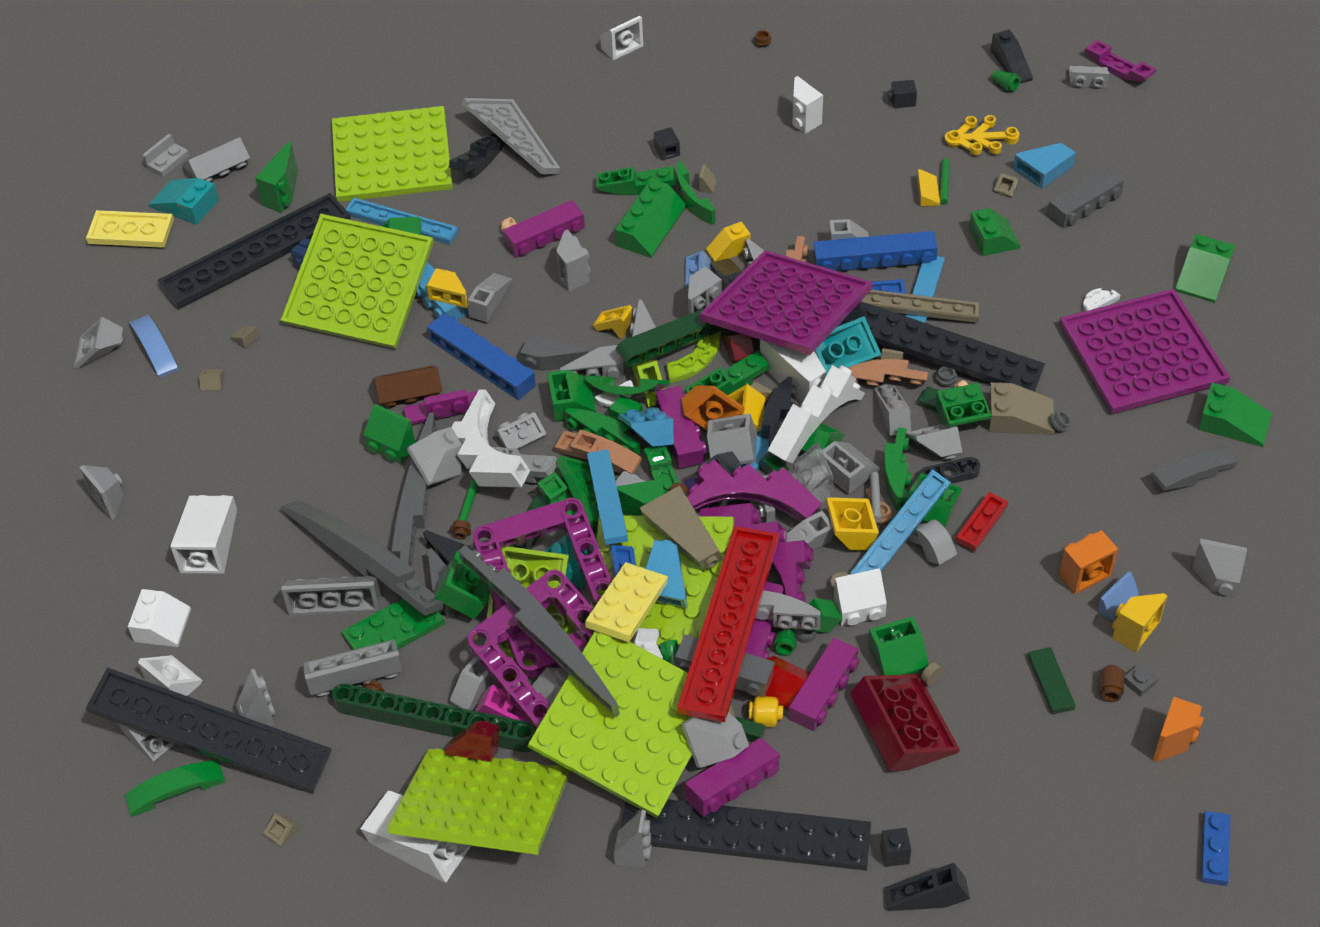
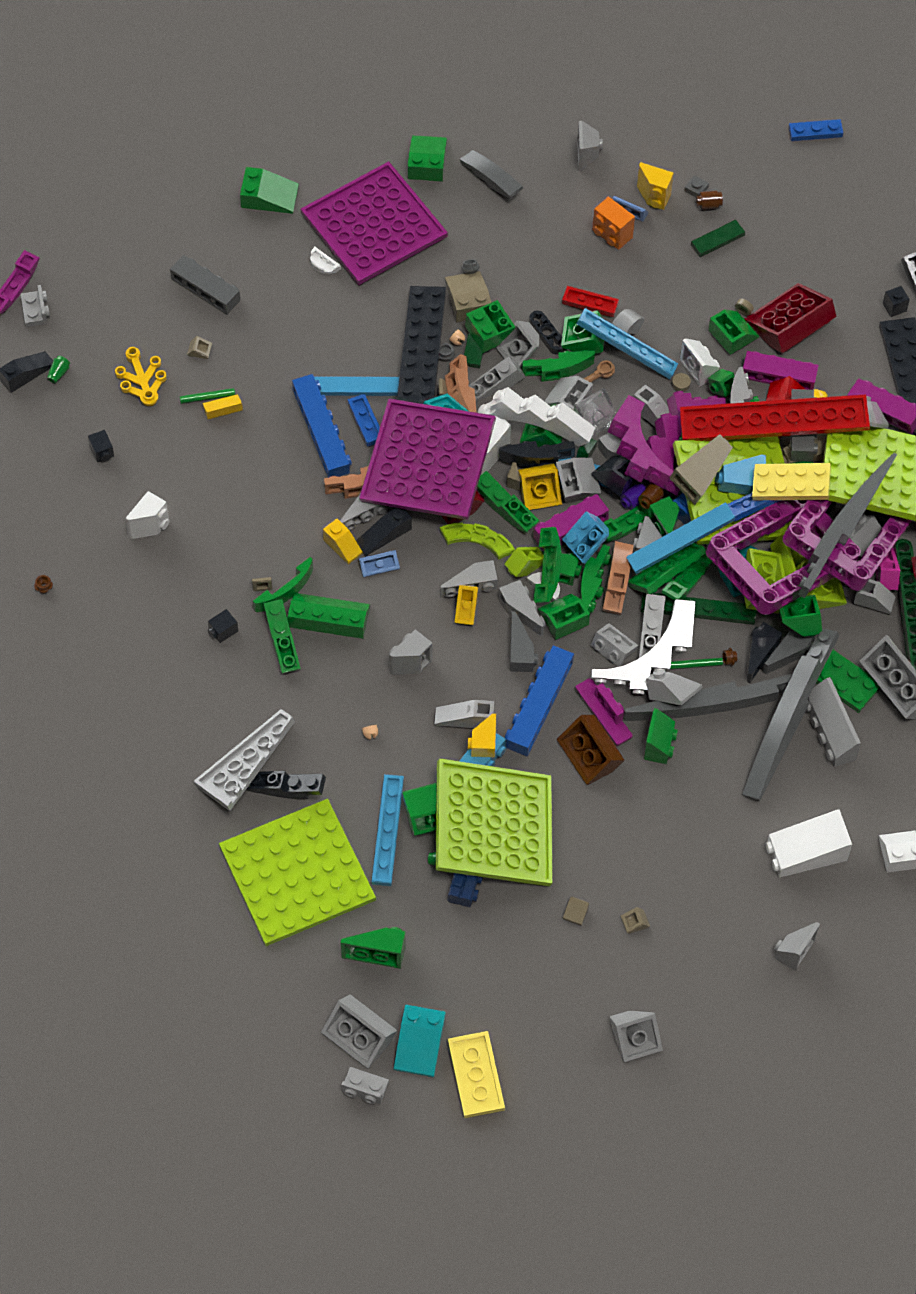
camera: 110 degrees left, 10 degrees up
(154, 345) = (611, 989): medium blue slope -> none
(248, 252) = (469, 944): black plate -> none
(543, 228) = (367, 697): magenta brick -> none
(623, 38) = (78, 703): white slope -> none
(665, 339) = (474, 543): dark green beam -> none
(703, 289) = (423, 540): light grey slope -> none
(709, 403) = (551, 497): orange slope -> none
(845, 229) = (309, 451): light grey slope -> none
(853, 522) = (629, 375): yellow slope -> none
(875, 496) = (600, 369): light grey bar -> none
(924, 305) = (374, 378): dark tan tile -> none
(992, 232) = (269, 346): green slope -> none
(1044, 163) = (169, 320): dark azure slope -> none
(1179, 729) = (742, 154): orange slope -> none

